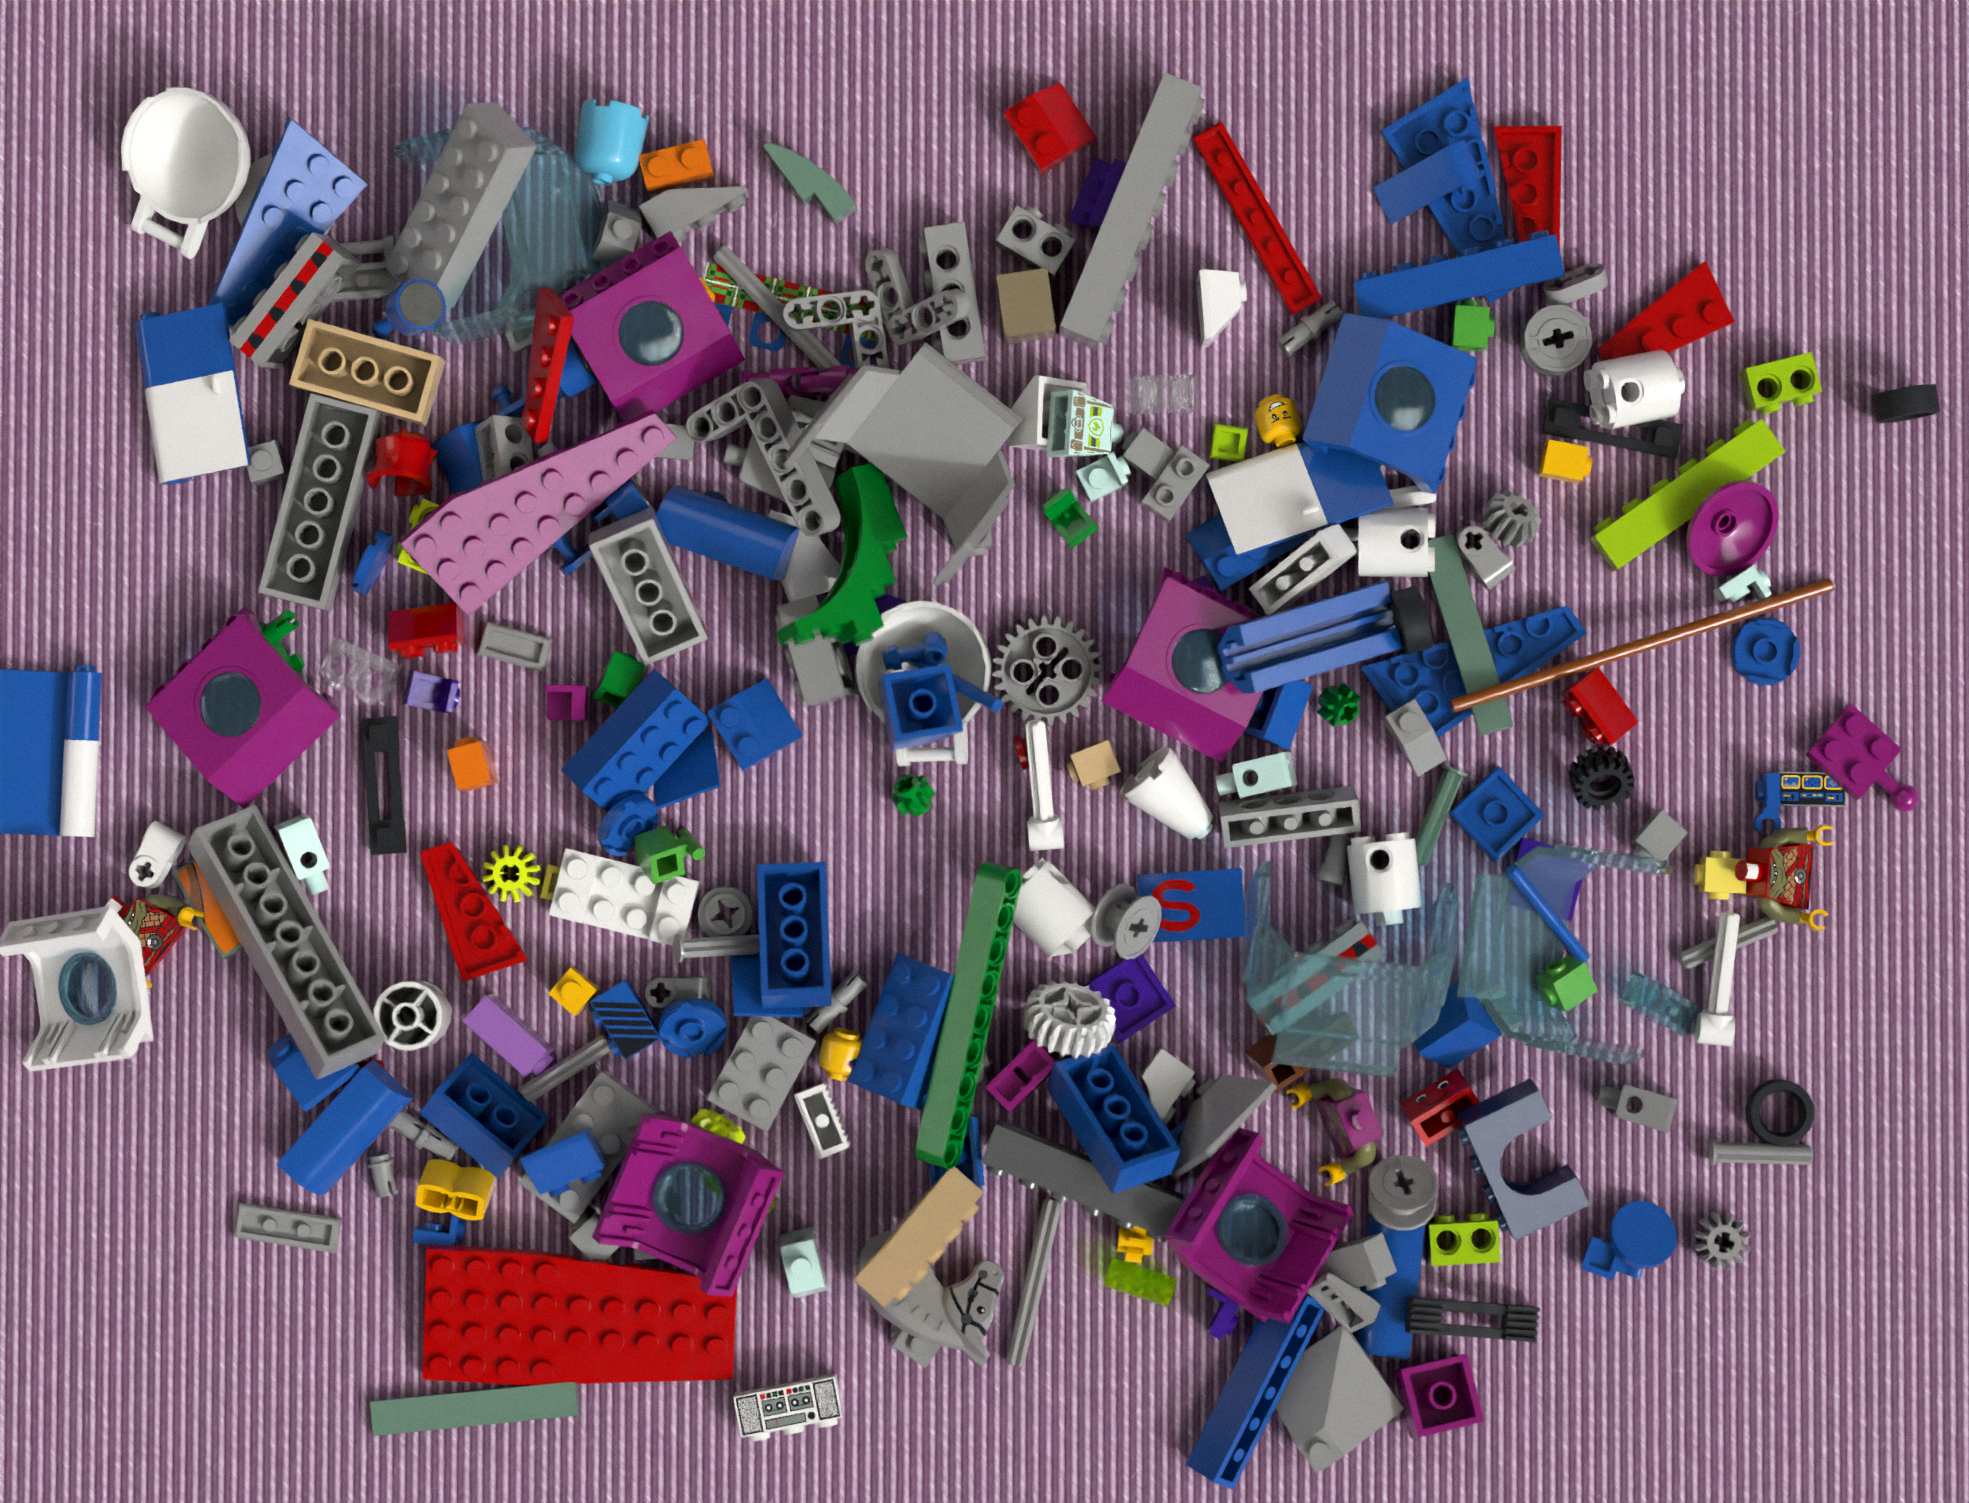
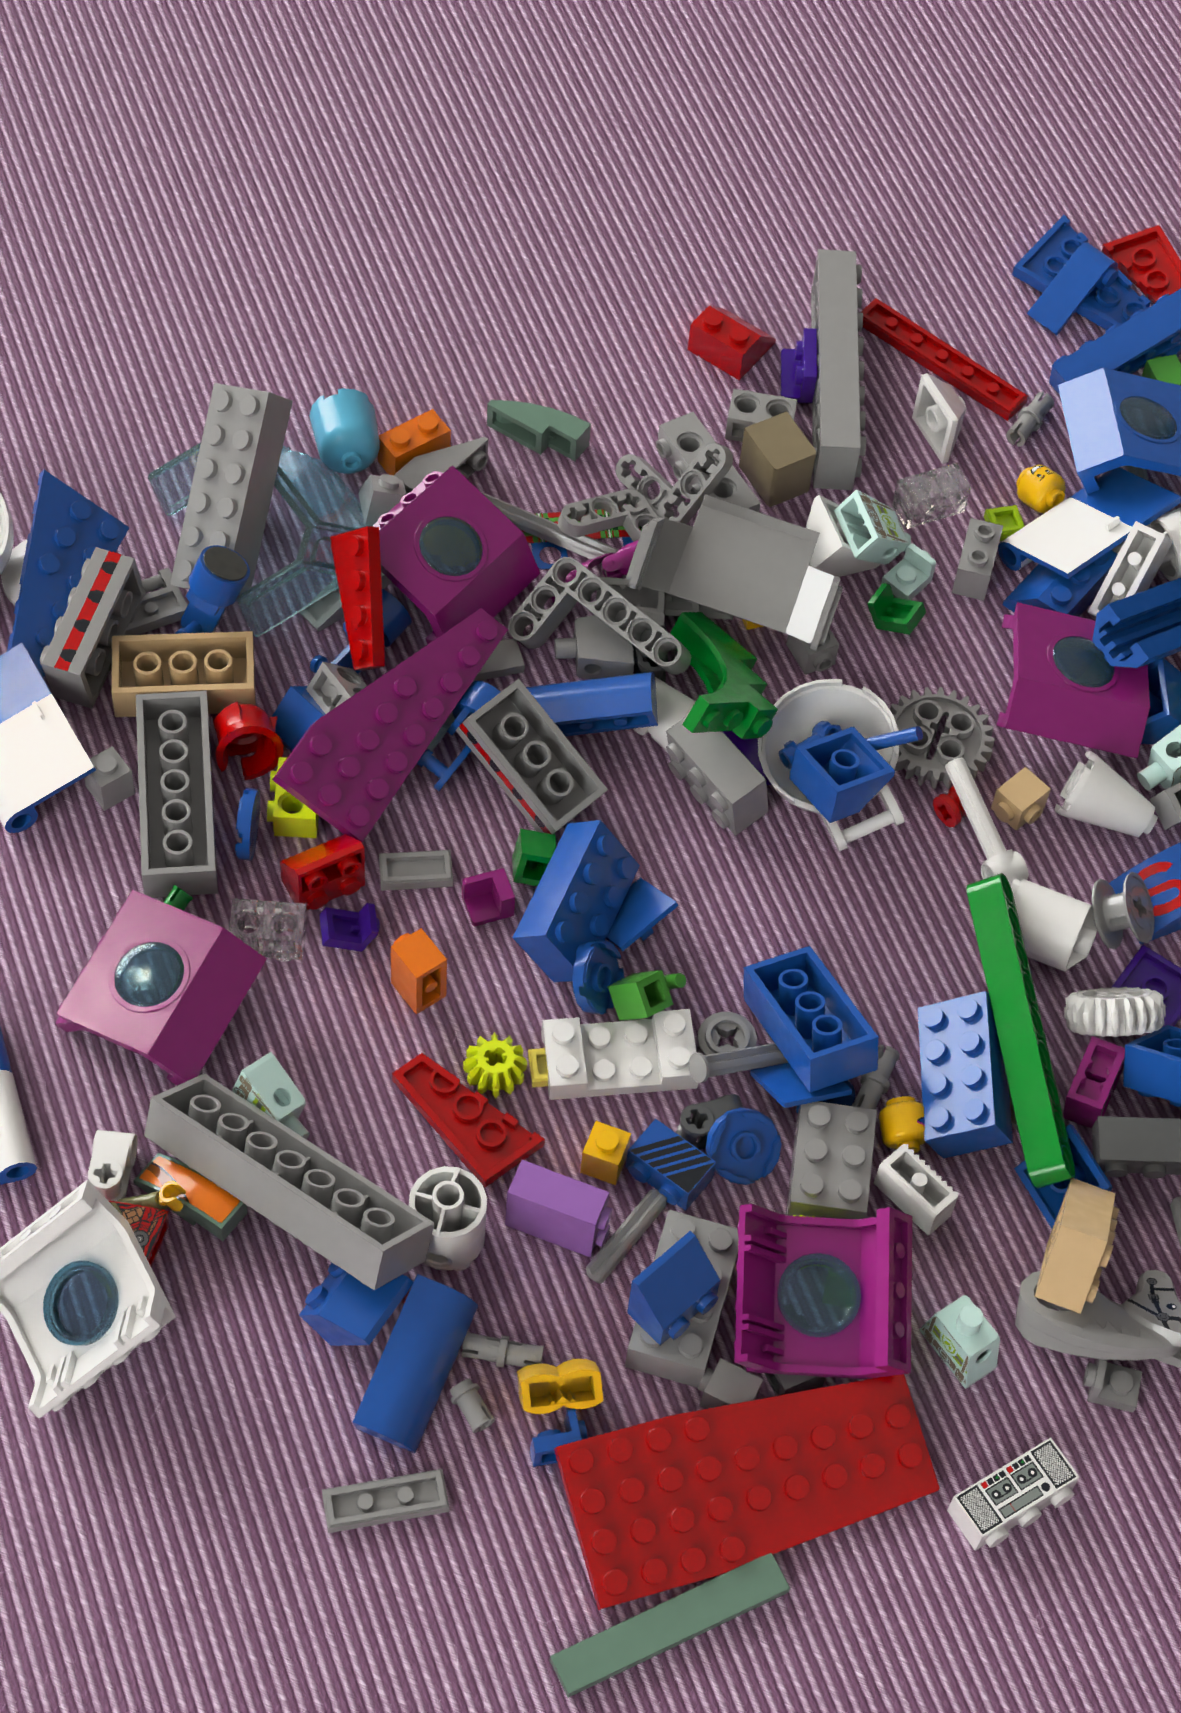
camera: 25 degrees left, 30 degrees down
(382, 736) = (349, 1074): black container -> none
(484, 1115) = (558, 1308): blue slope -> none
(755, 724) = (679, 865): blue slope -> none
(912, 795) = (863, 874): green gear -> none
(1147, 454) = (943, 543): light grey brick -> none

